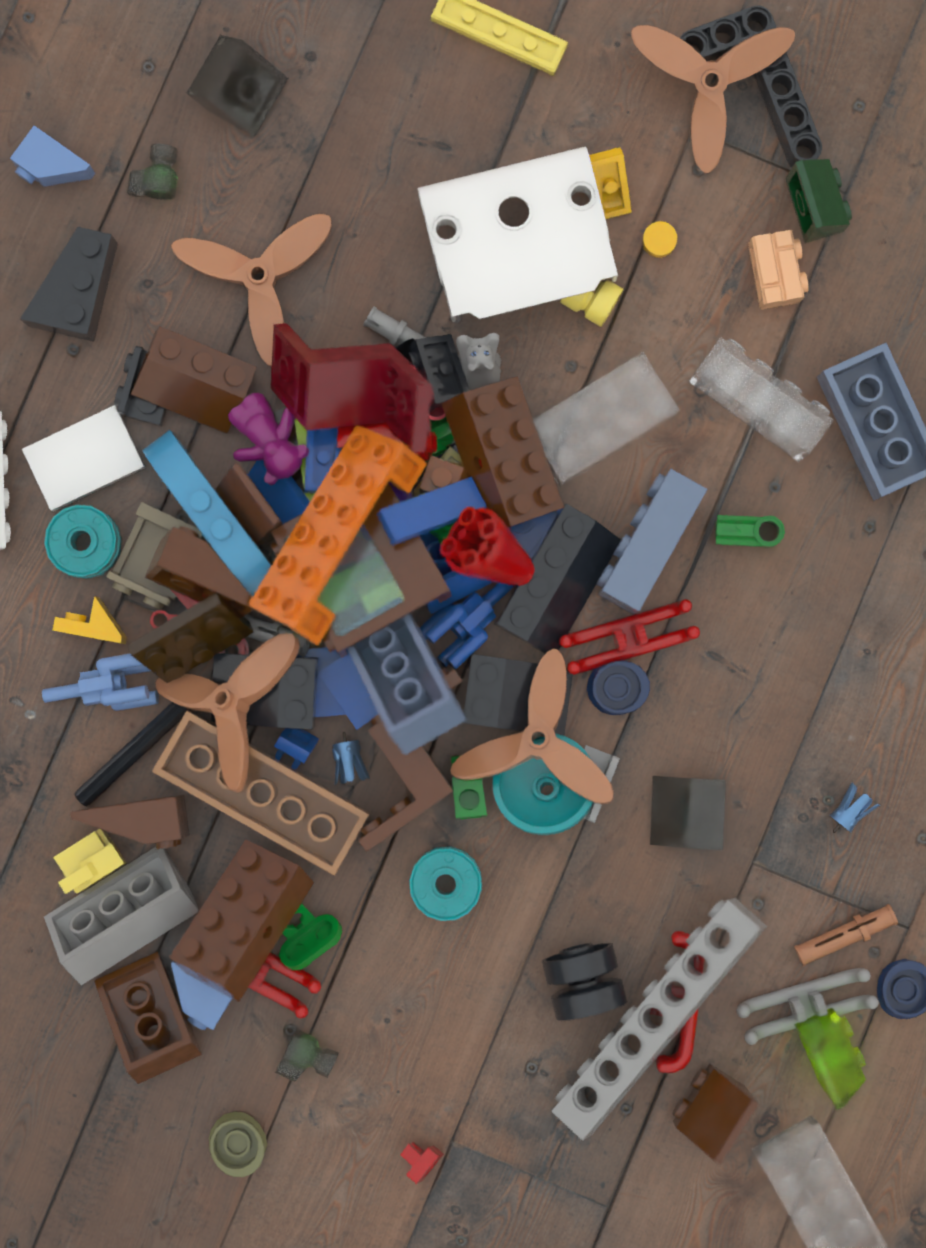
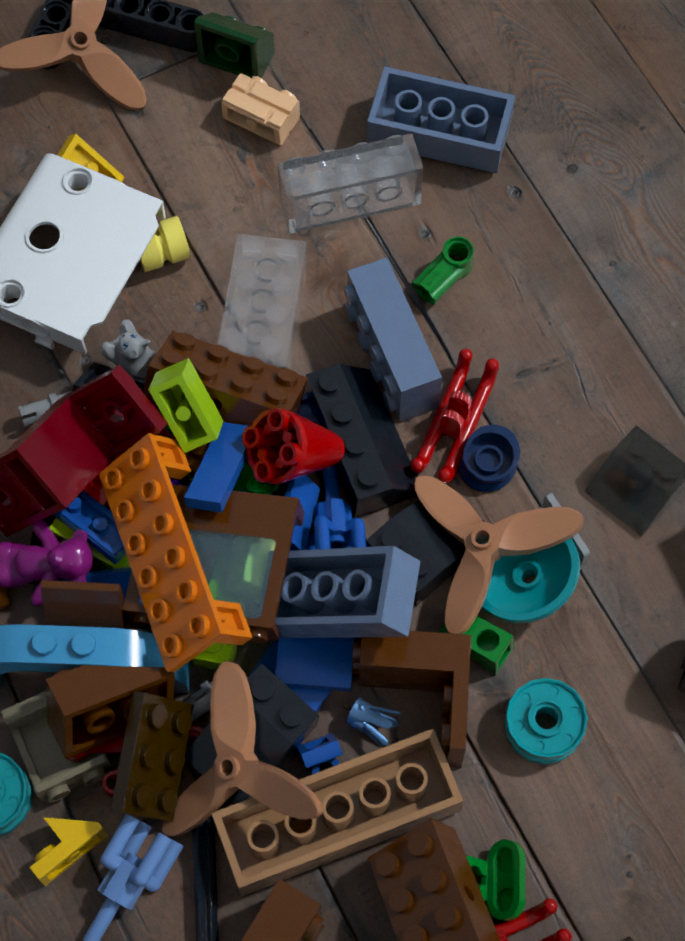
camera: 45 degrees left, 20 degrees down
(453, 449) = (186, 405): none -> lime brick
(659, 239) = (163, 172): yellow tile -> none

